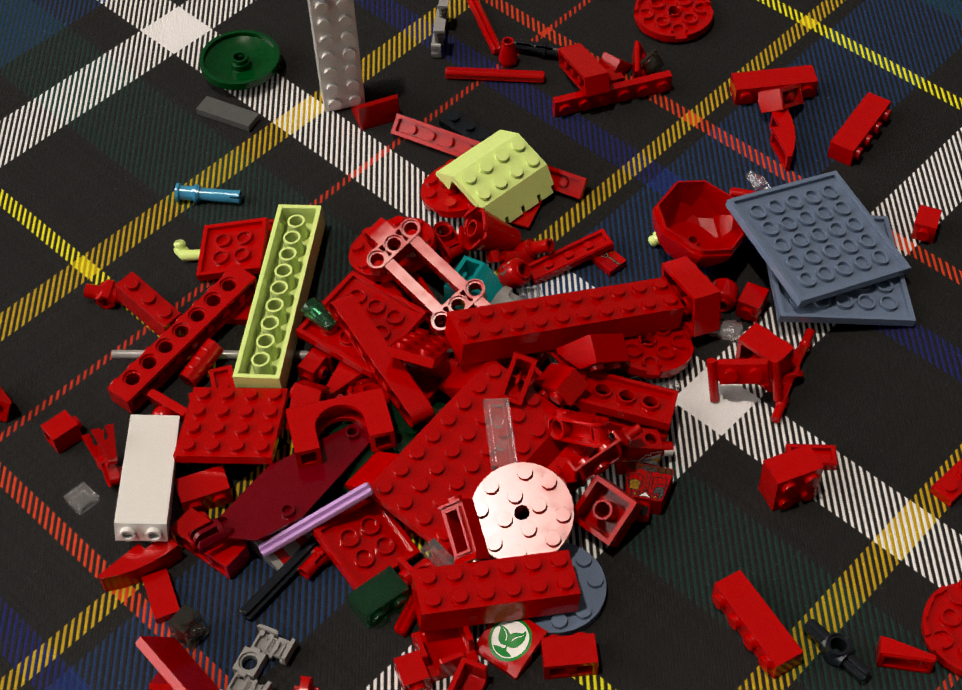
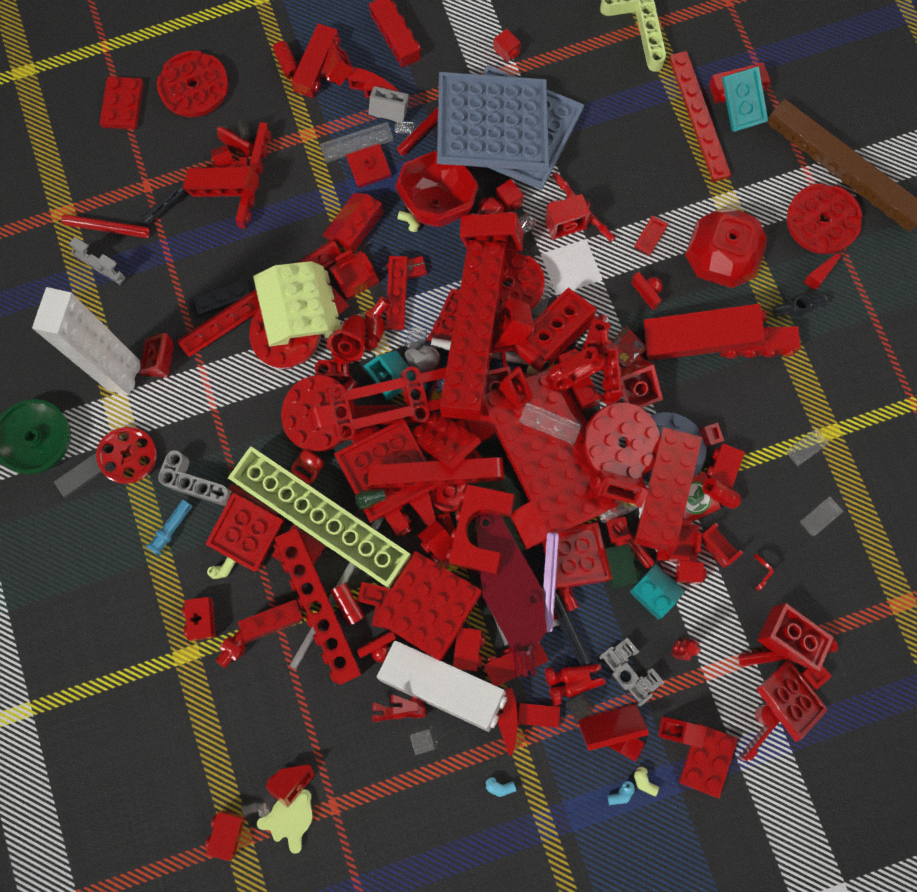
camera: 60 degrees left, 25 degrees up
(57, 589) = (498, 789): none -> medium azure arm
(62, 431) = (354, 733): red brick -> none
(125, 256) = (206, 626): none -> red brick
(217, 612) = (576, 681): none -> red piece
(258, 139) = (132, 462): none -> red wedge
(260, 174) = (196, 484): none -> light grey beam
(337, 269) = (310, 462): none -> red piece
(369, 649) = (657, 591): none -> teal slope
(489, 74) = (173, 248): red axle -> none
(508, 53) = (160, 227): red cone -> none
(514, 273) = (394, 339): red head -> none
(529, 660) = (721, 493): none -> red axle
(561, 384) = (529, 359): red brick -> none
(565, 214) = (353, 273): none -> red panel
(602, 623) = (711, 434): none -> red plate
(622, 193) = (354, 221): none -> red slope
(694, 168) = (368, 165): none -> red plate
(711, 154) = (356, 141): none -> clear plate
(721, 550) = (705, 332): none -> red brick
(739, 479) = (648, 289): none -> red tile
(744, 372) = (579, 238): red plate -> none
(758, 61) = (285, 59): none -> red axle
(771, 156) = (388, 104): none -> light grey brick
(790, 477) = (671, 257): red brick -> none
(851, 549) = (718, 256): none -> red rock

